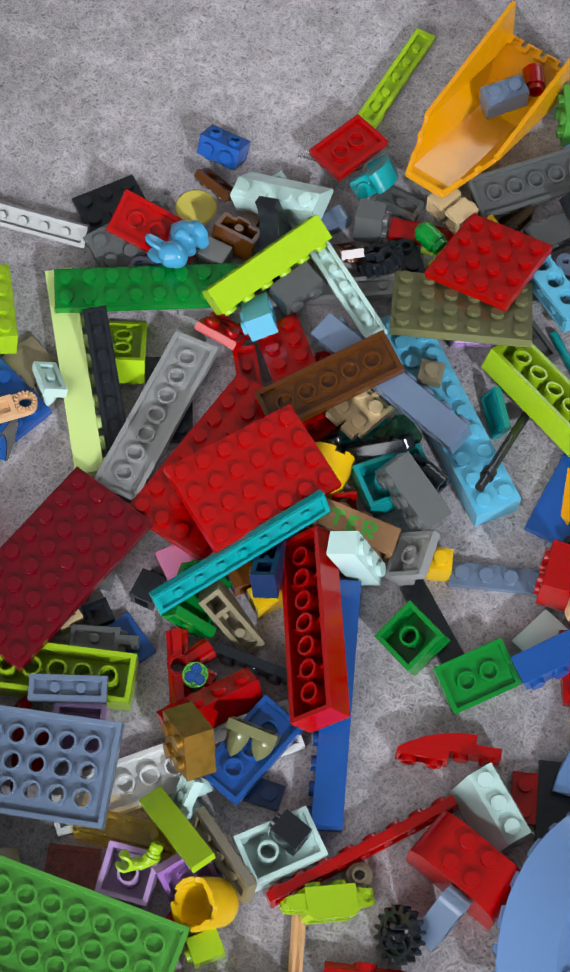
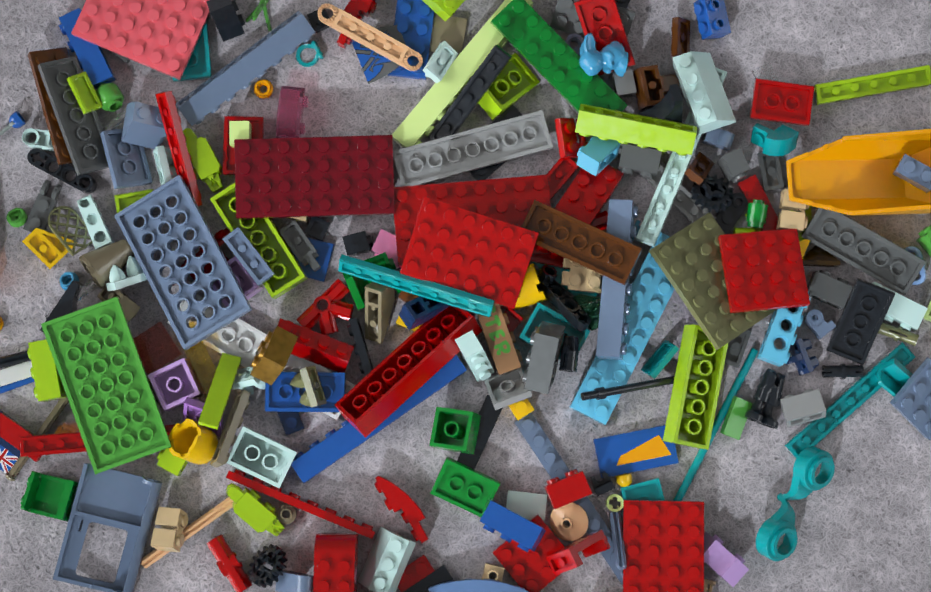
camera: 55 degrees right, 20 degrees up
(132, 863) = (177, 380): lime piece -> none
(195, 675) = (322, 321): tile -> none
(196, 206) = (653, 37): light yellow piece -> none
(289, 831) = (269, 457): black brick -> none
(431, 373) = (645, 299): dark tan plate -> none

